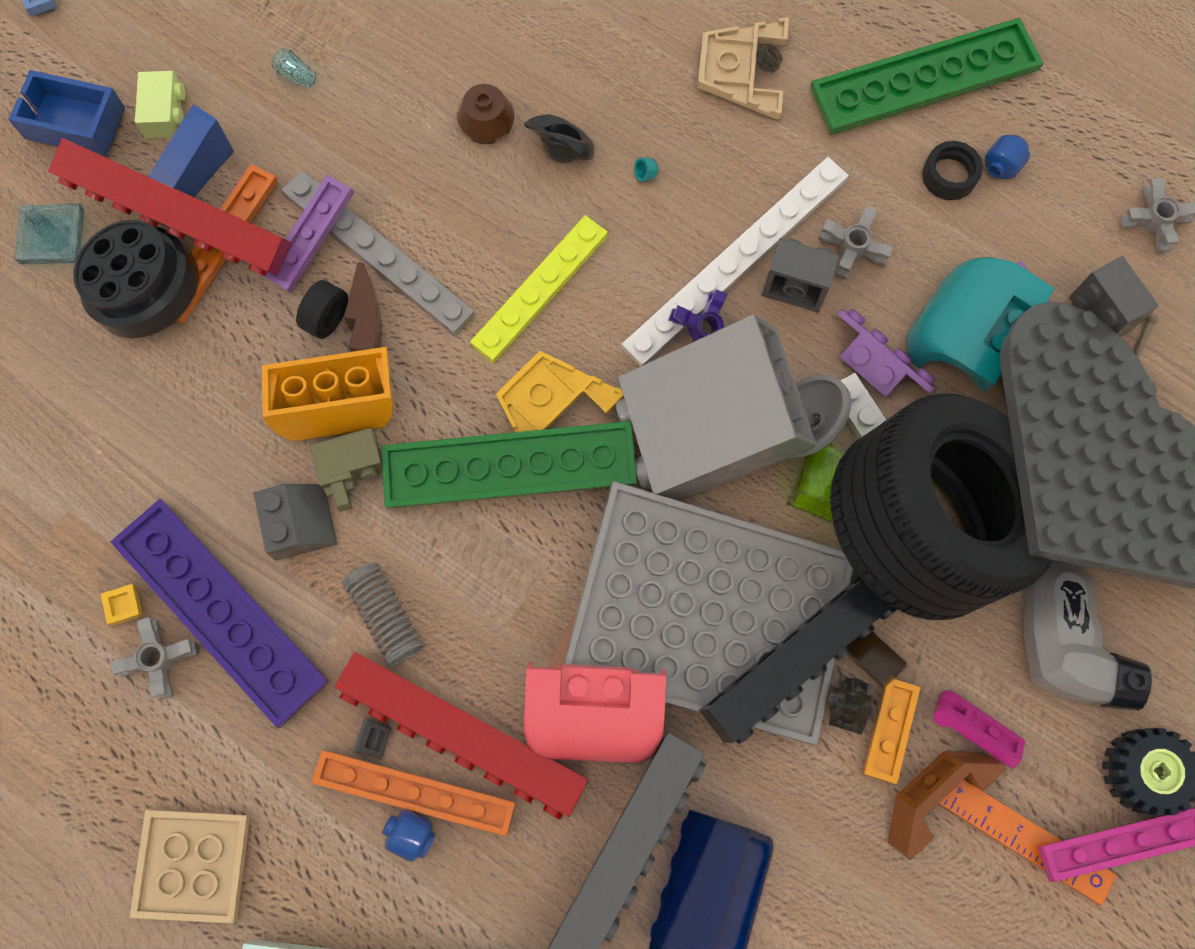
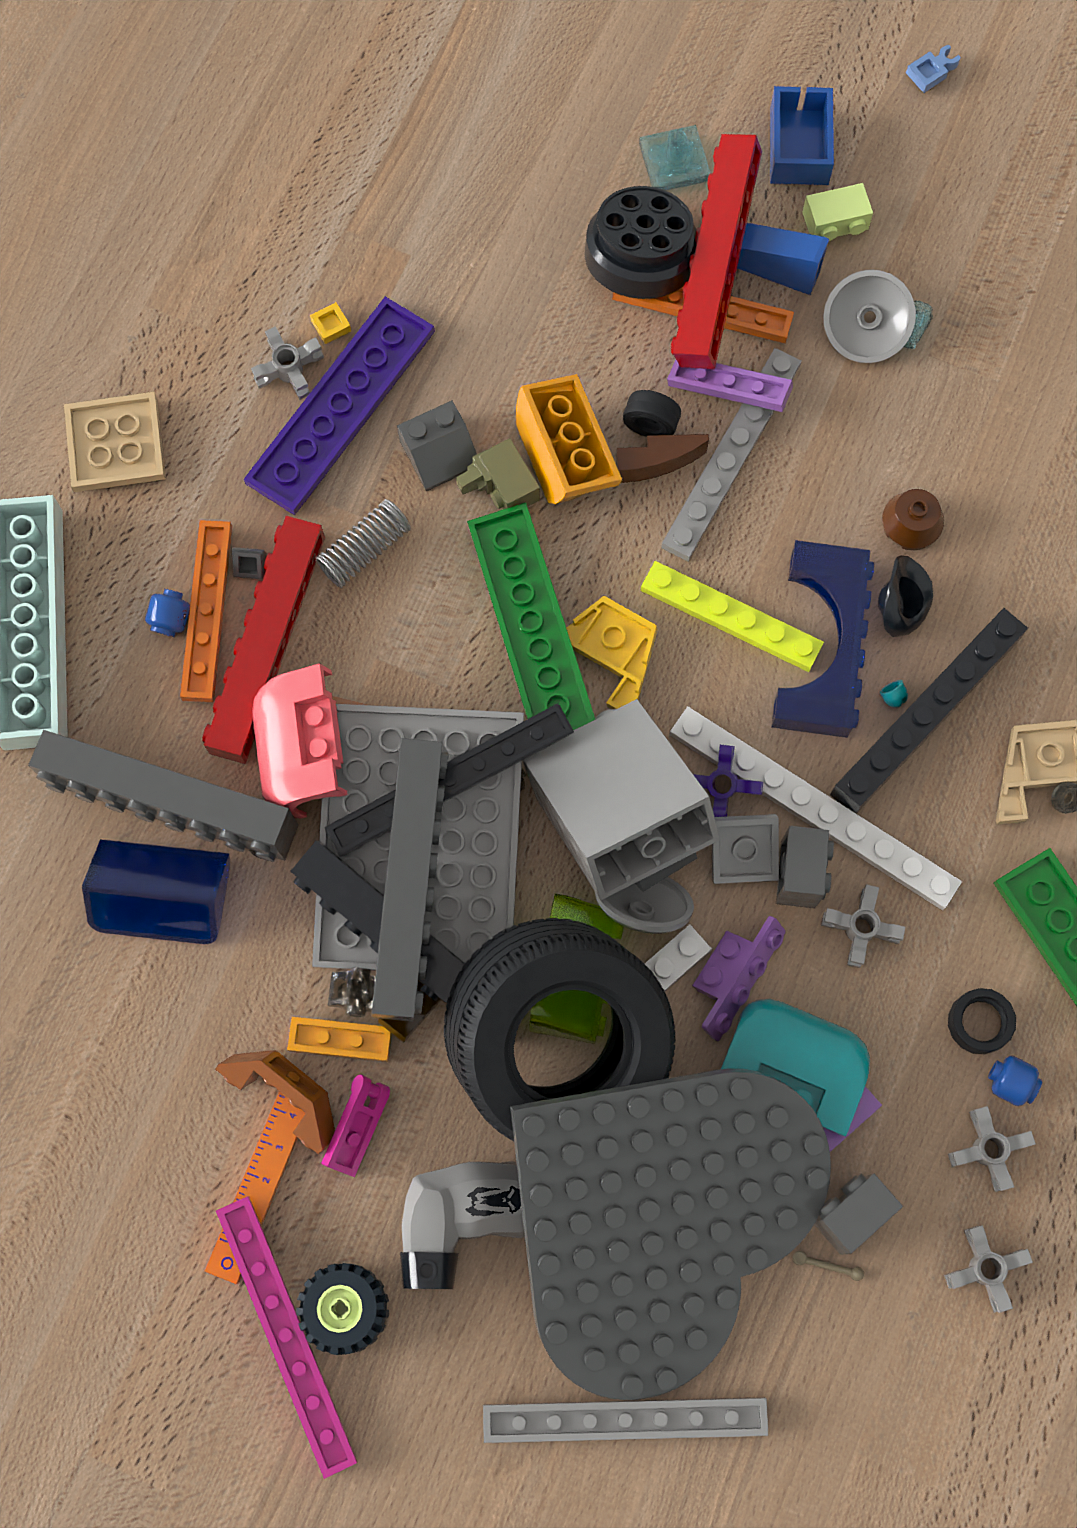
camera: 80 degrees right, 0 degrees up
(290, 85) = (855, 297): none -> light grey dish
(535, 185) = (840, 579): none -> clear blue arch
(666, 569) = (461, 774): none -> black tile
(672, 145) = (928, 711): none -> black brick
(777, 311) = (746, 849): none -> light grey plate
(777, 619) = (407, 877): none -> dark grey brick
(1059, 198) = (983, 1124): none -> light grey pin

